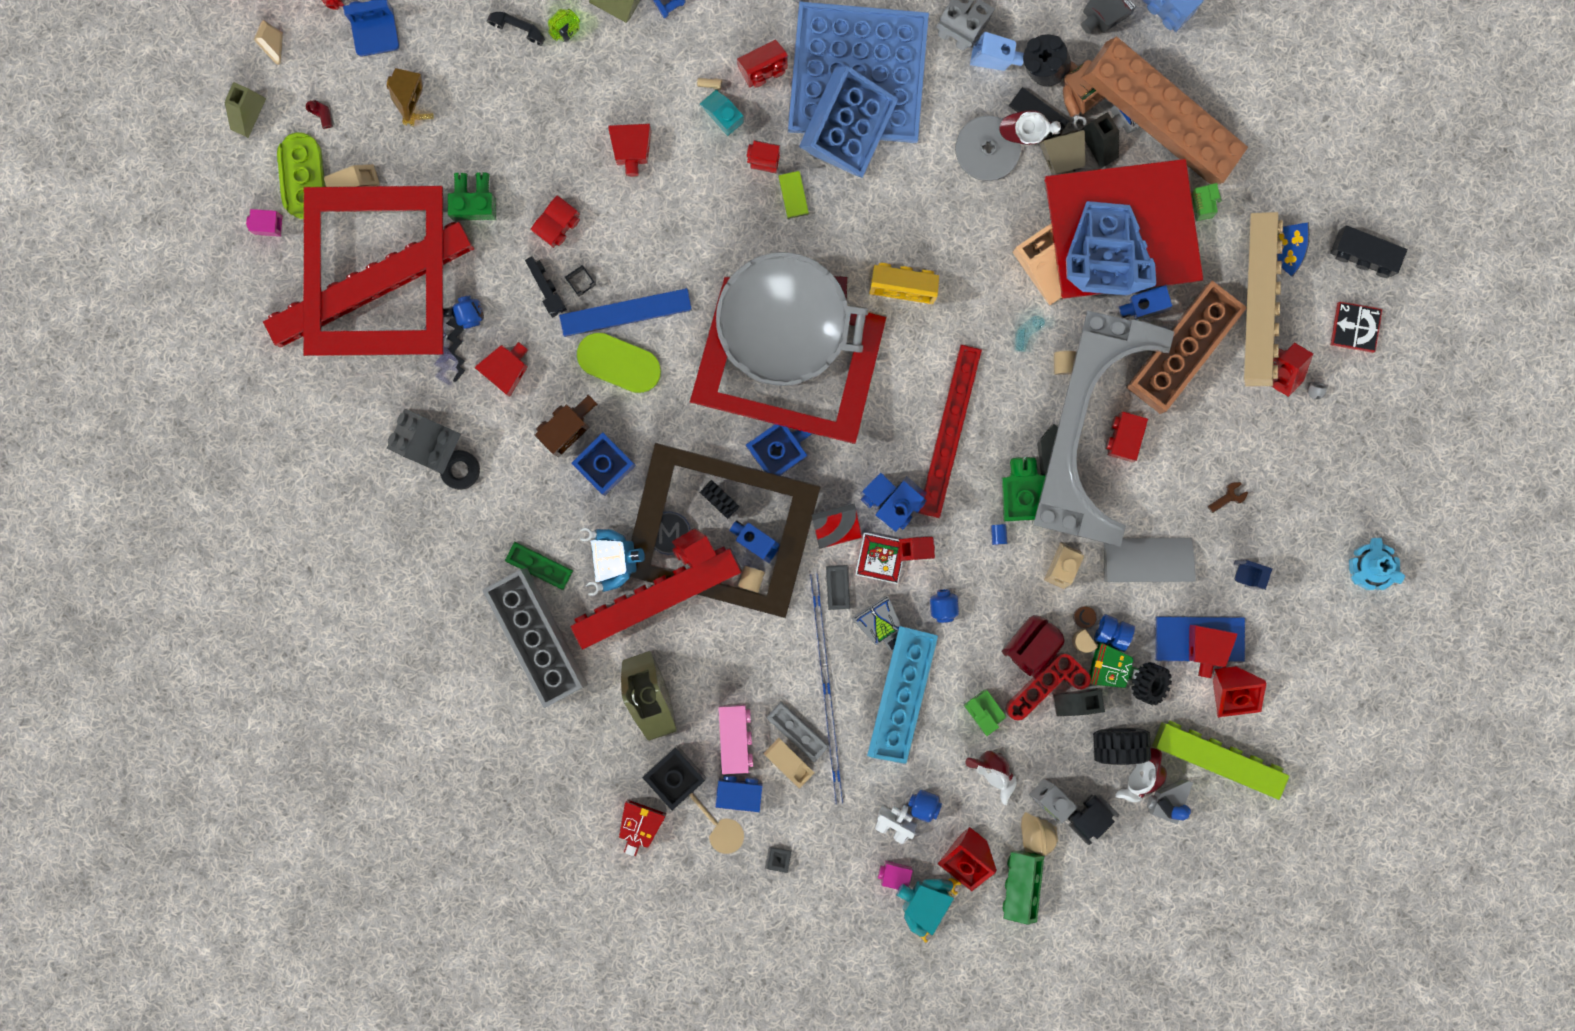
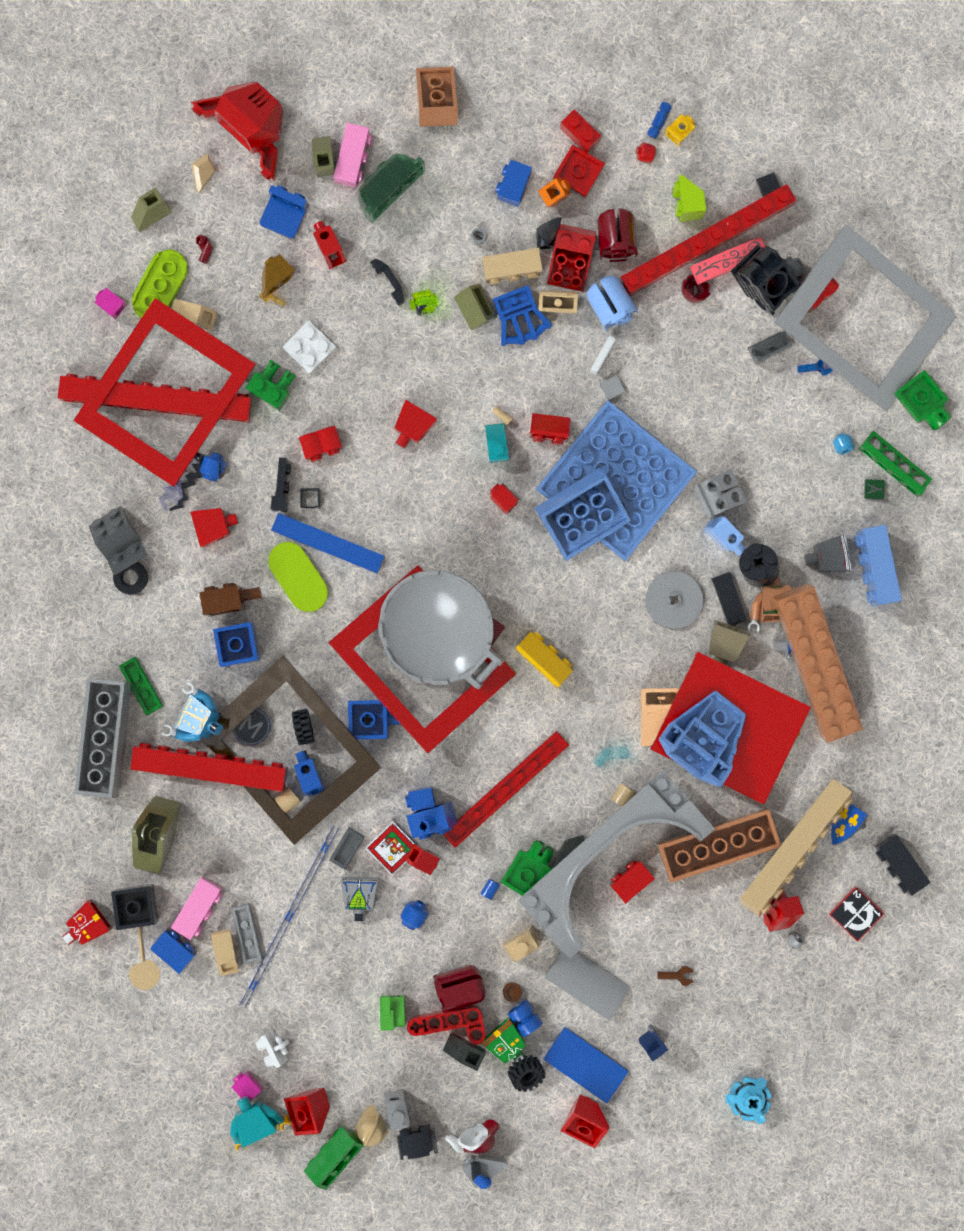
camera: 40 degrees right, 0 degrees up
(433, 26) = (328, 244): none -> red torso
(483, 140) = (309, 347): none -> white plate
(693, 548) = (259, 750): red brick -> none
(778, 859) = (170, 1017): dark grey tile -> none
(793, 194) = (508, 538): lime tile -> none
(836, 526) = (374, 803): dark grey tile -> none
(902, 695) = (340, 959): medium azure plate -> none
(925, 806) = (302, 1050): blue head -> none
(1000, 776) = (372, 1063): hair -> none
(1027, 127) = (711, 606): white hair -> none
(1083, 641) = (497, 1009): tan brick -> none
(1103, 139) = (761, 651): pearl dark grey slope -> none
(1122, 746) = (473, 1104): black tyre -> none
(1158, 303) = (720, 796): blue torso -> none
(1204, 201) = (805, 746): bright green piece -> none
(1210, 648) = (586, 1076): red torso -> none
(1221, 761) = (540, 1165): lime brick -> none

